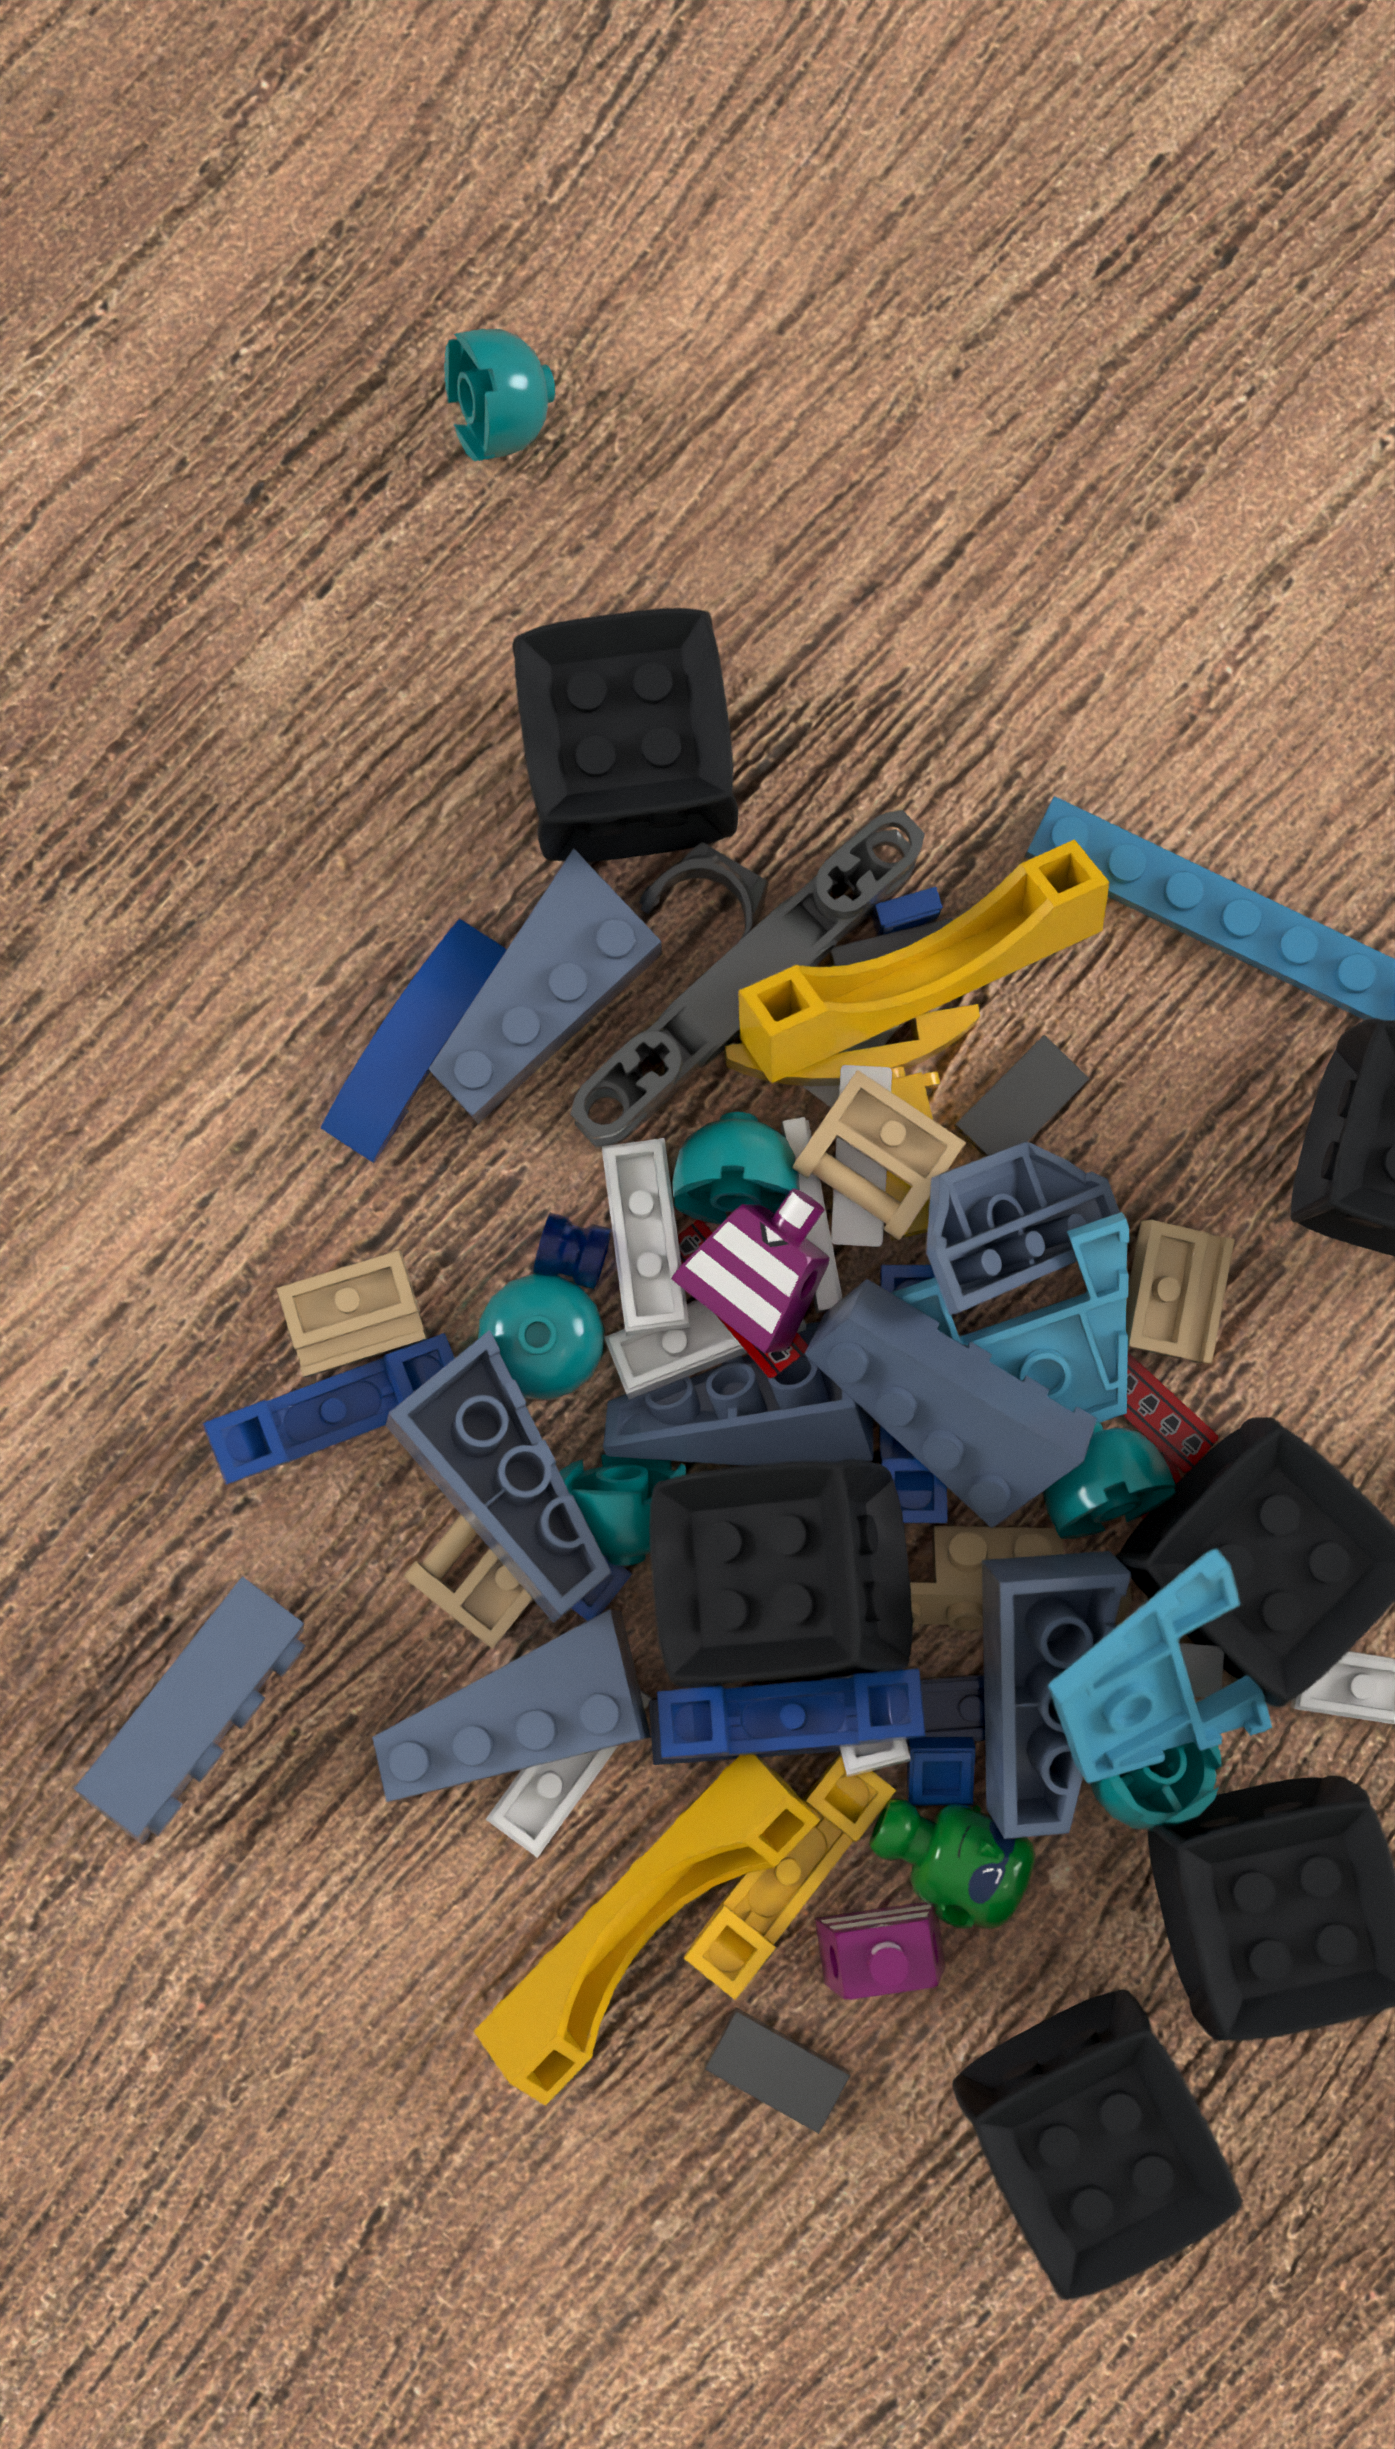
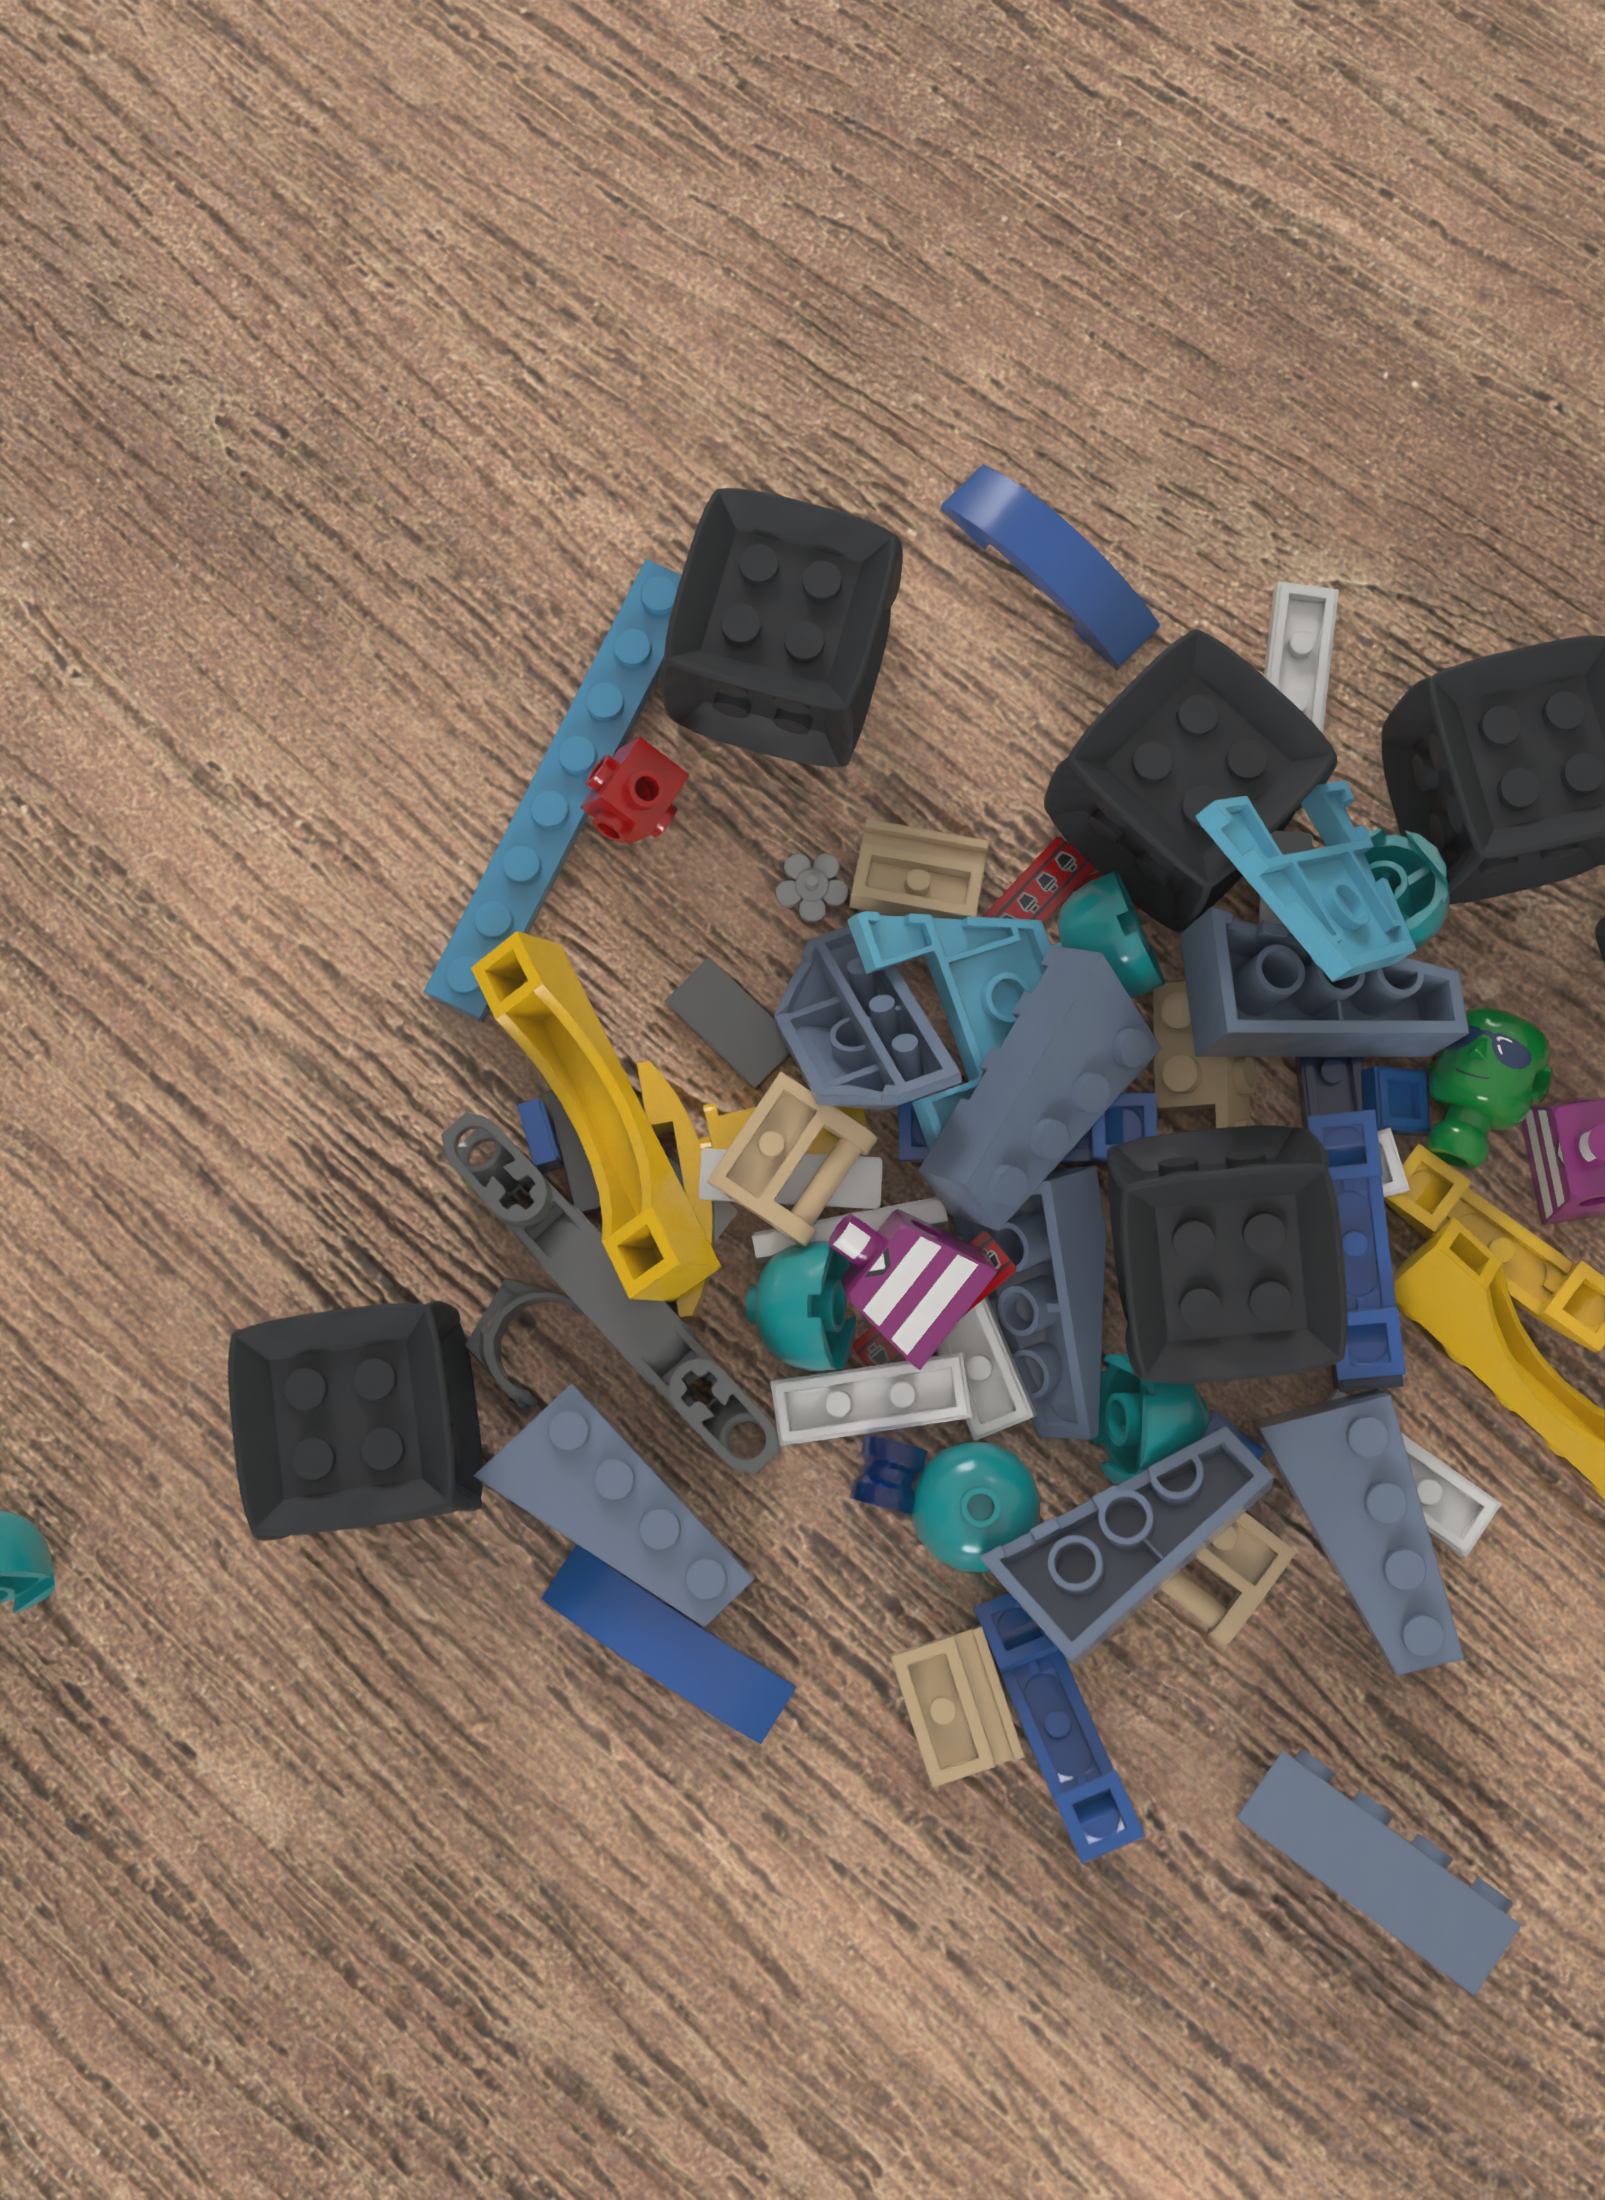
camera: 90 degrees left, 5 degrees down
(1164, 1184) = (812, 886): none -> light grey plant
(1257, 1001) = (633, 792): none -> red brick

